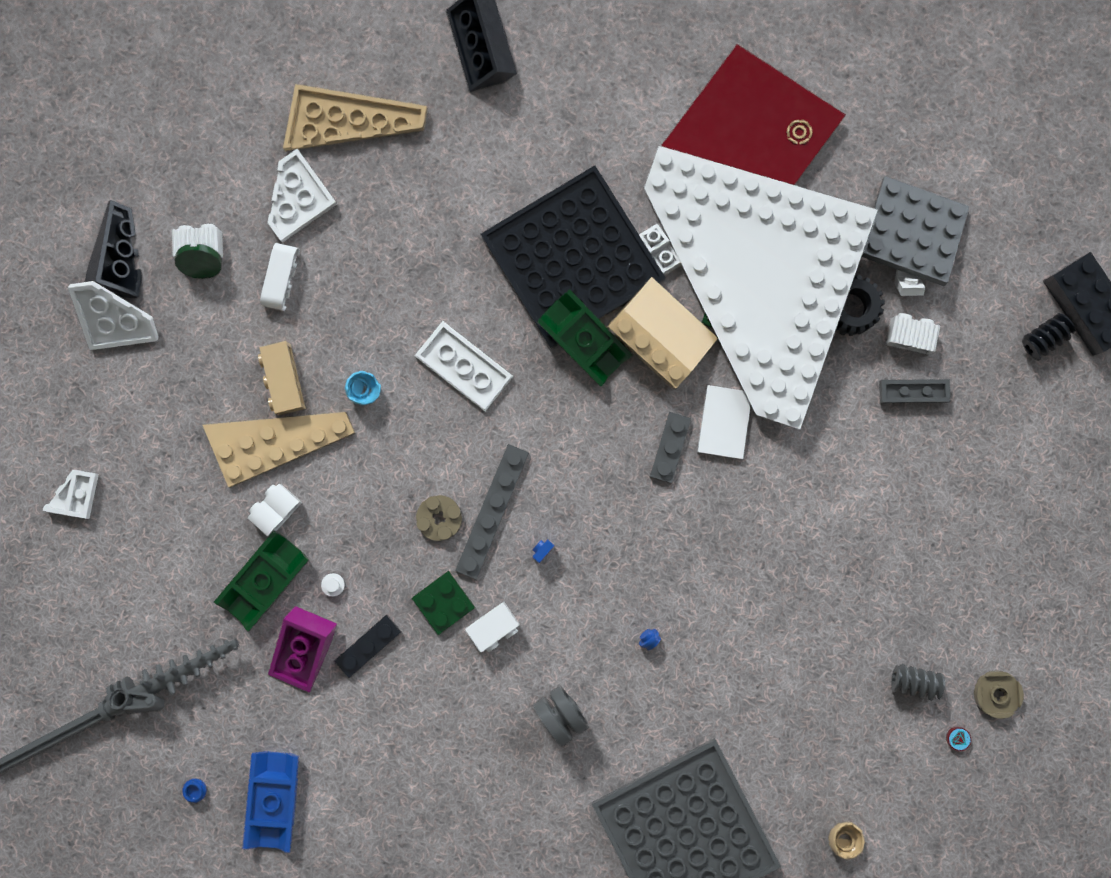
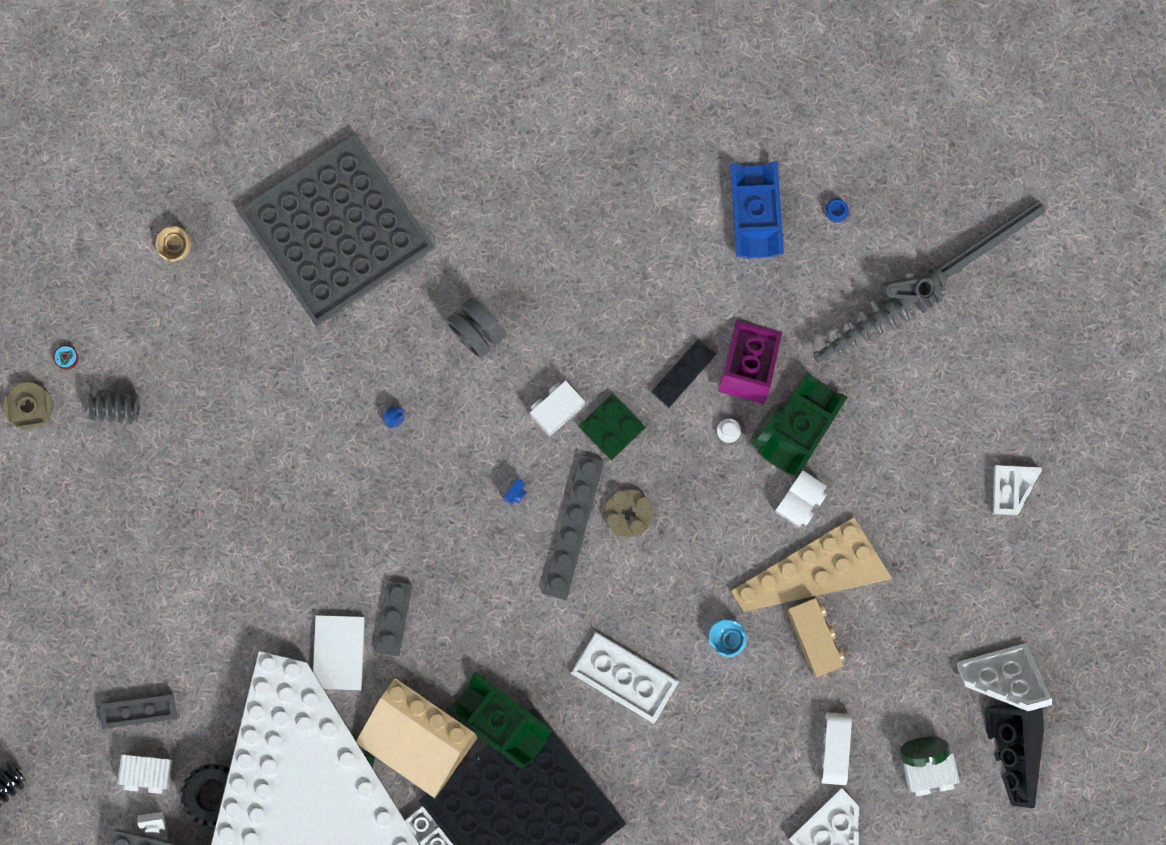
camera: 170 degrees right, 5 degrees down
(296, 581) = (766, 426): none -> dark green tile

